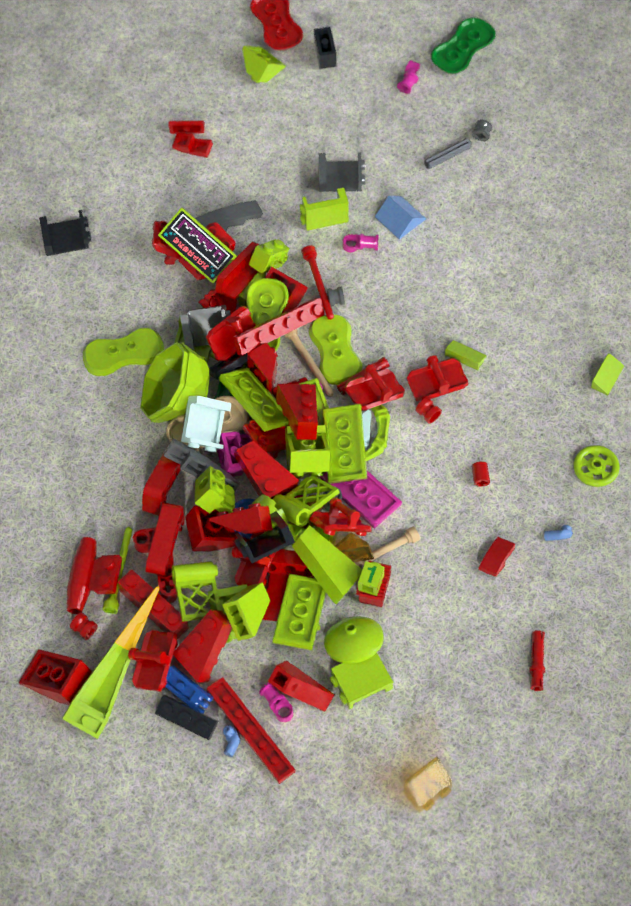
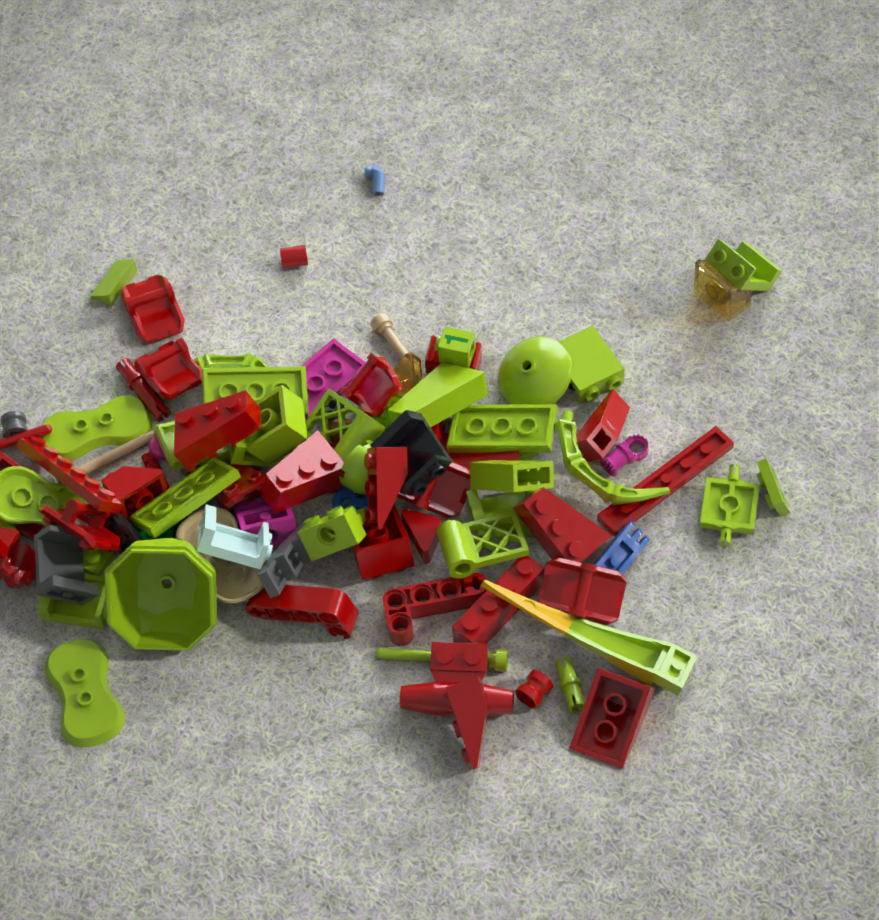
camera: 90 degrees left, 5 degrees down
(58, 578) = (470, 710): none -> red slope
(86, 650) = (570, 684): none -> lime pin
(164, 538) = (403, 586): red beam -> none
(186, 717) = (655, 554): black plate -> none
(219, 556) = (422, 531): none -> red slope
(223, 774) = (729, 505): none -> lime plate
(233, 740) = (680, 501): medium blue arm -> none
(235, 807) = (768, 479): none -> lime plate
(256, 663) = (579, 468): none -> lime animal
(428, 410) = (199, 314): red wheel -> none
(443, 801) = (743, 267): none -> lime panel
(496, 556) = (411, 235): red slope -> none
(537, 664) = (546, 194): red pin -> none
(587, 478) = (274, 162): lime plate -> none
(607, 374) = (151, 138): lime slope -> none

